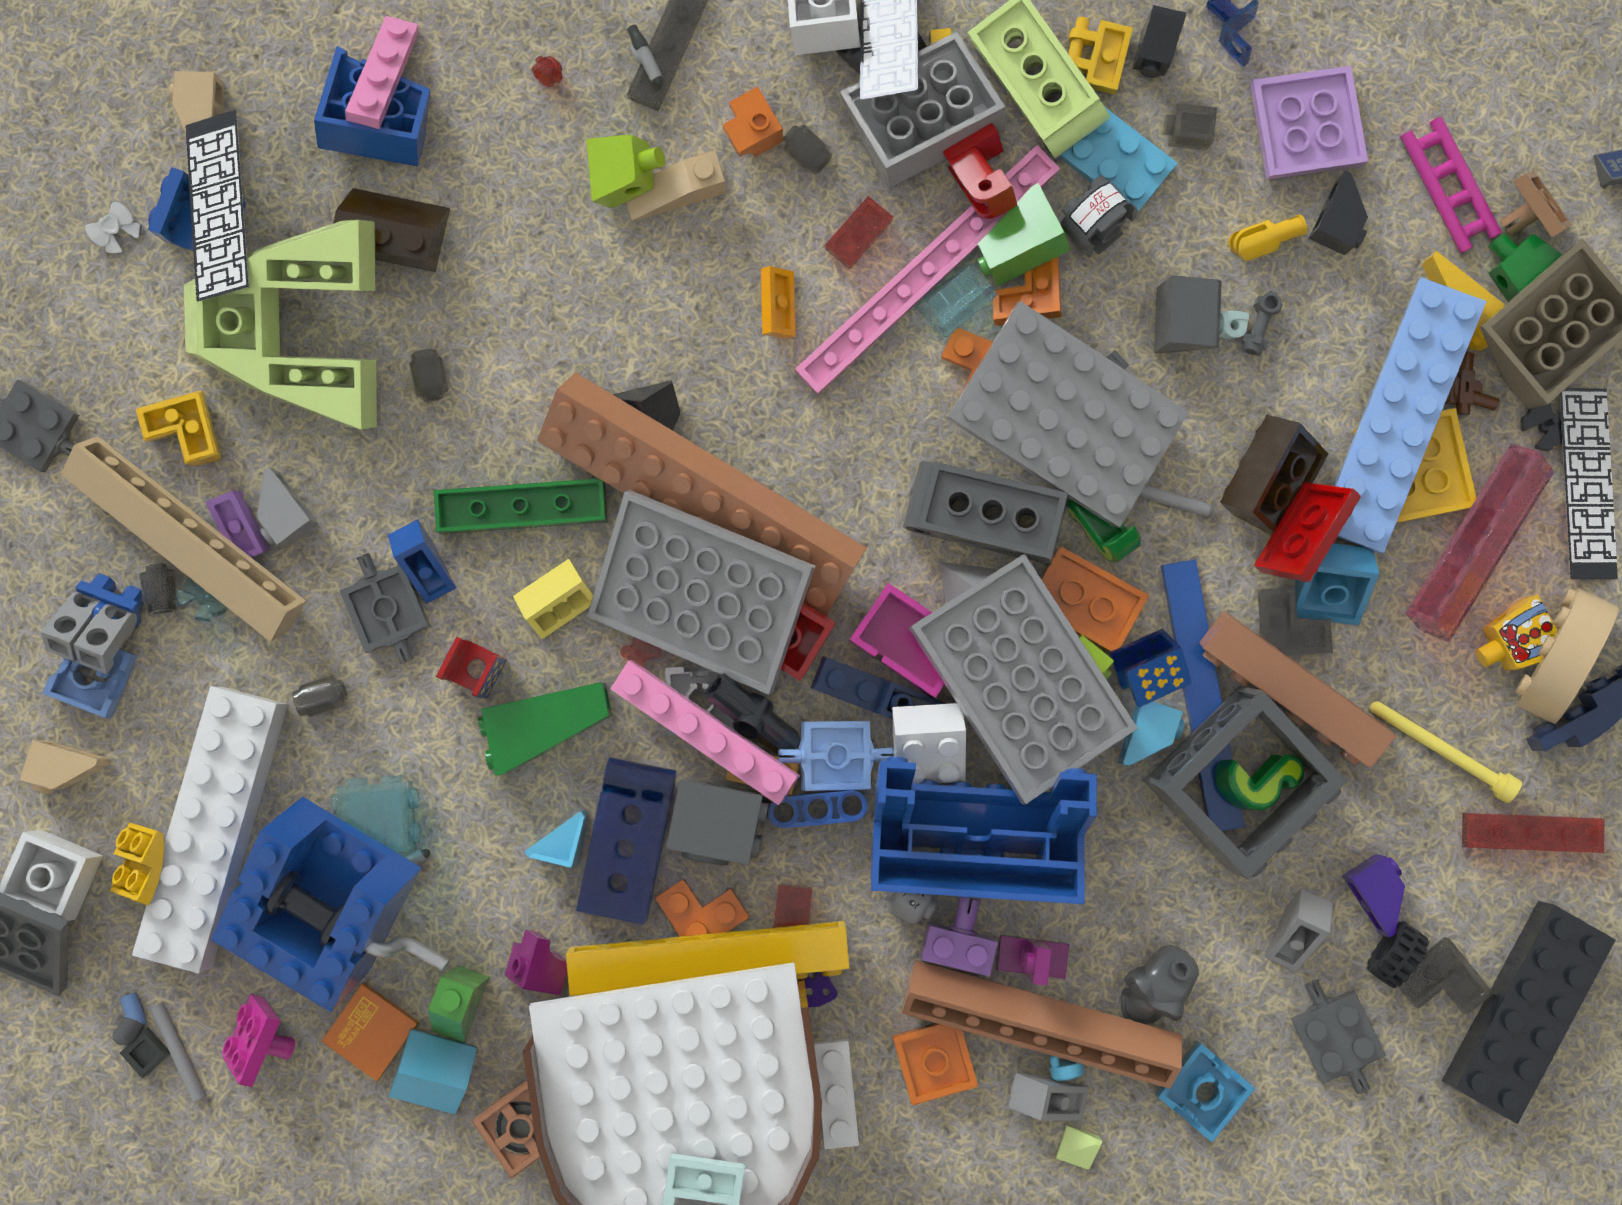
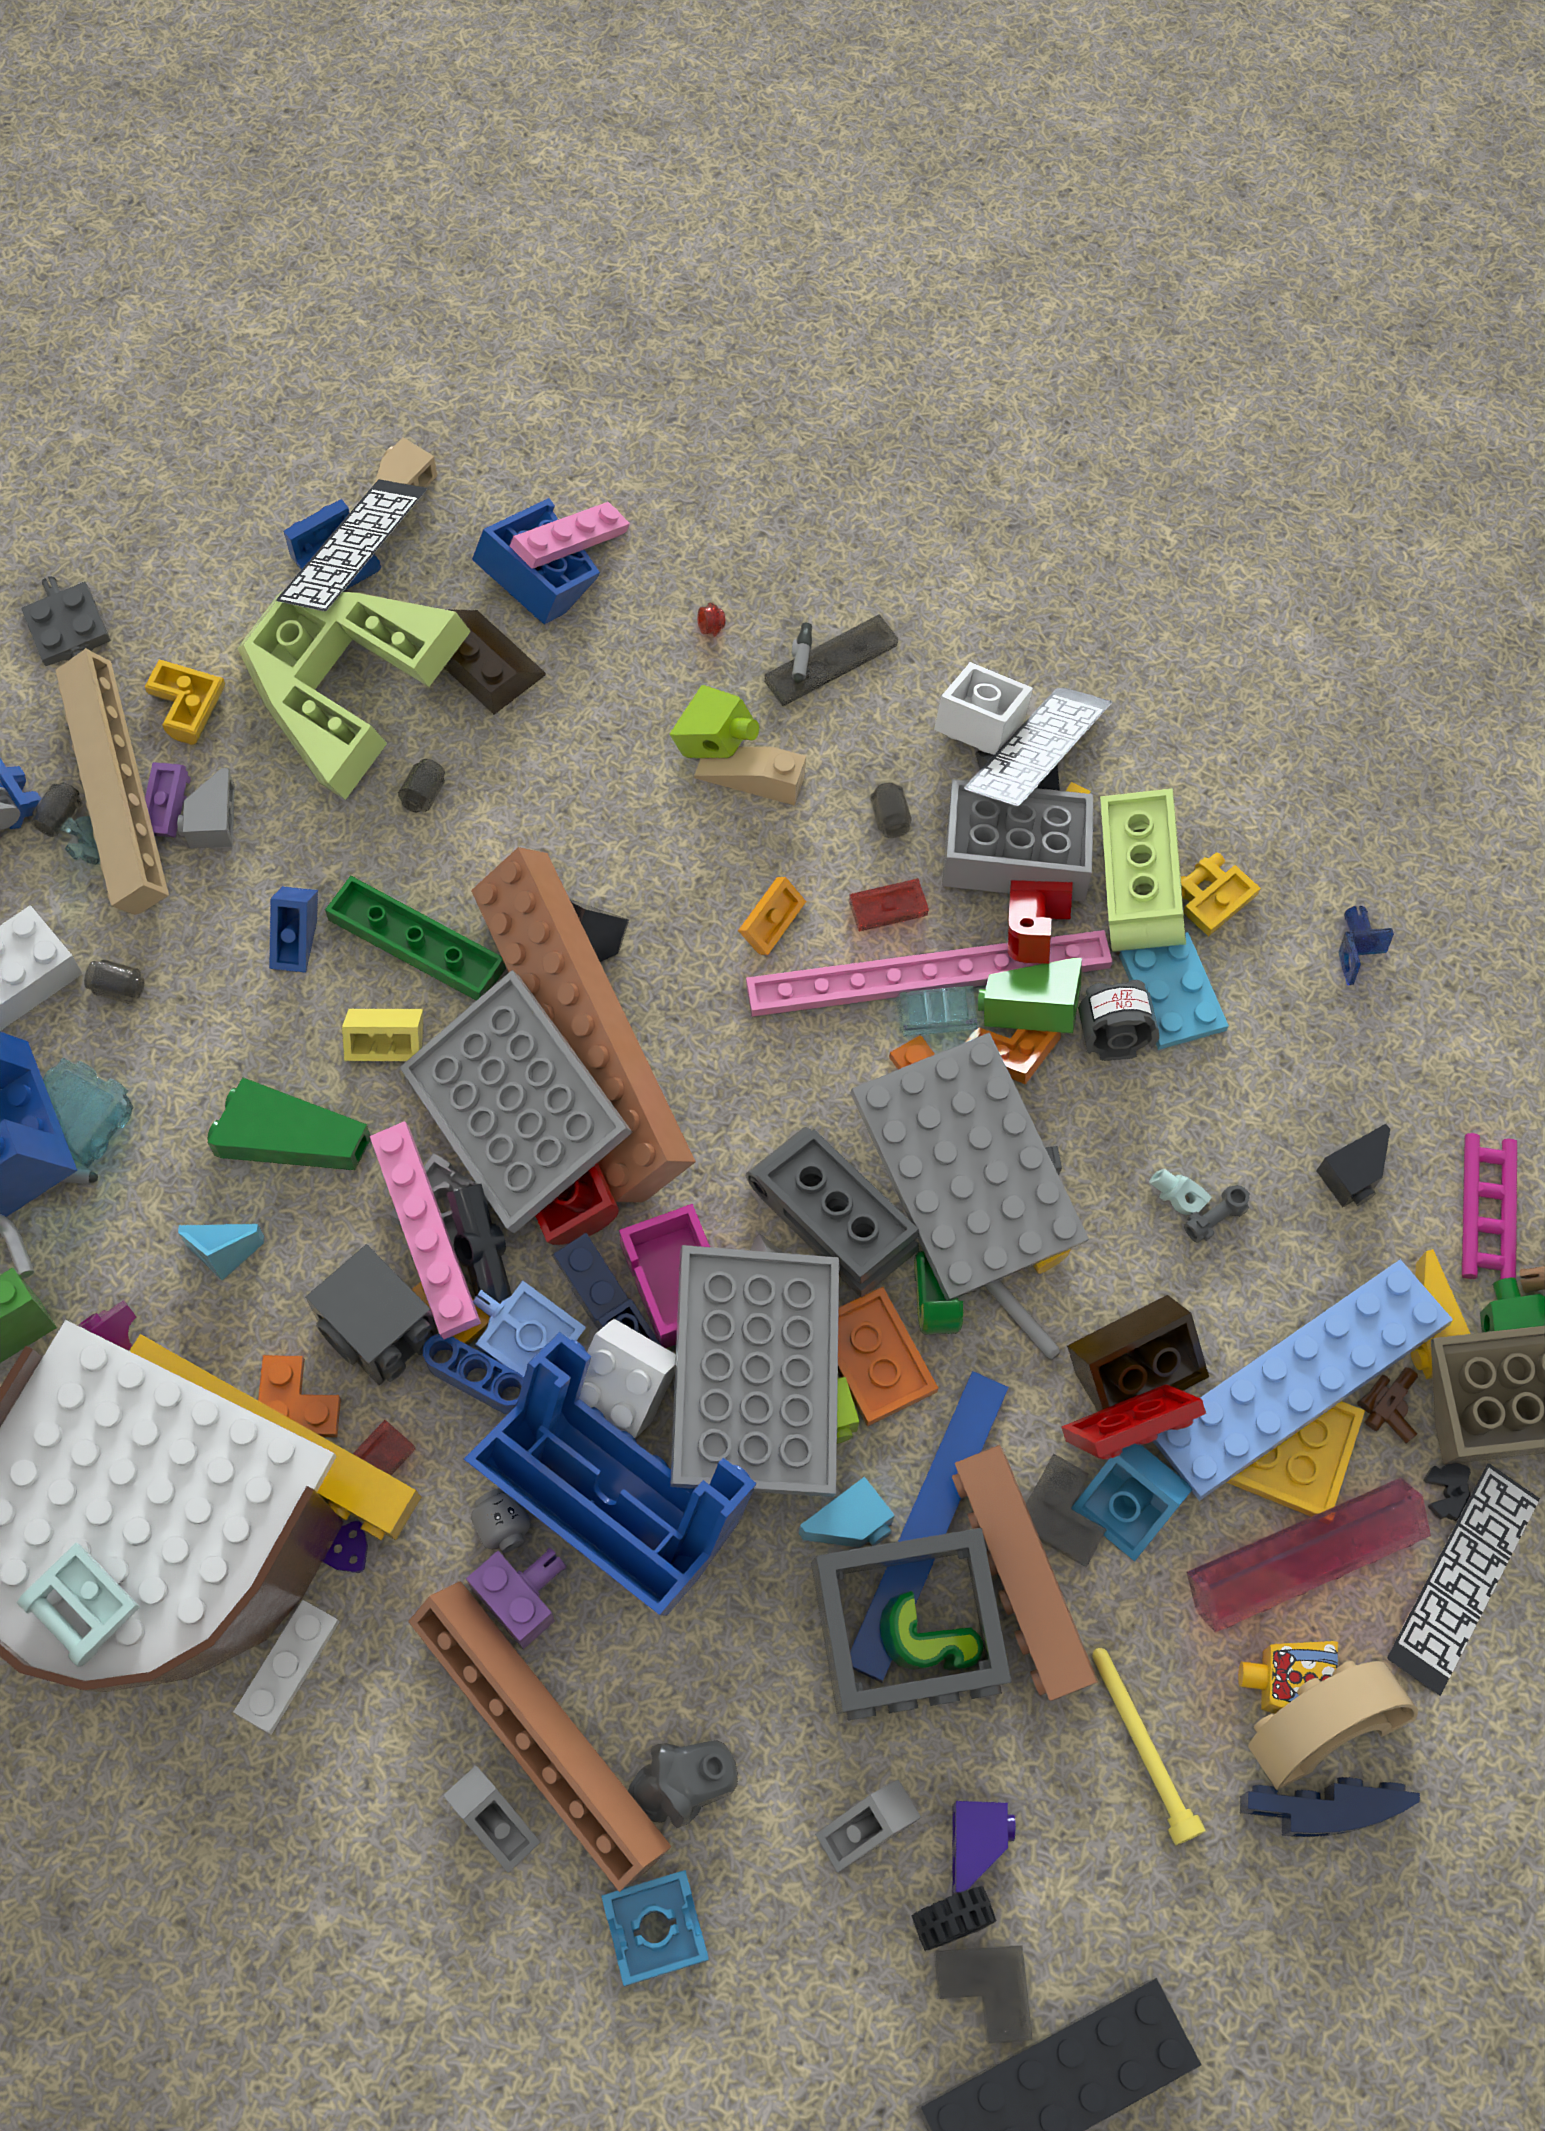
camera: 30 degrees right, 20 degrees down
(110, 224) = (260, 517): white piece -> none
(384, 608) = (229, 947): dark grey plate -> none
(457, 661) = (262, 1038): red piece -> none
(640, 652) = (425, 1130): clear red piece -> none
(652, 792) = (312, 1234): clear blue hinge -> none
(754, 125) = (855, 761): orange brick -> none
(934, 1062) = (405, 1700): orange plate -> none
(1033, 958) = (579, 1664): magenta bracket -> none
(1065, 1069) = (528, 1800): medium azure tile -> none
(1078, 1147) = (483, 1897): yellowish green slope -> none
(1151, 667) = (891, 1453): piece -> none
(1158, 41) = (1276, 909): black slope -> none
(1187, 314) = (1149, 1155): dark grey slope -> none
(1190, 126) = (1261, 1001): clear smoke brick -> none
(1265, 237) = (1271, 1140): yellow arm -> none
(1308, 122) = (1380, 1068): lavender plate -> none
(1338, 1036) = (834, 1973): dark grey plate -> none
(1533, 832) = (1186, 1897): clear red plate -> none

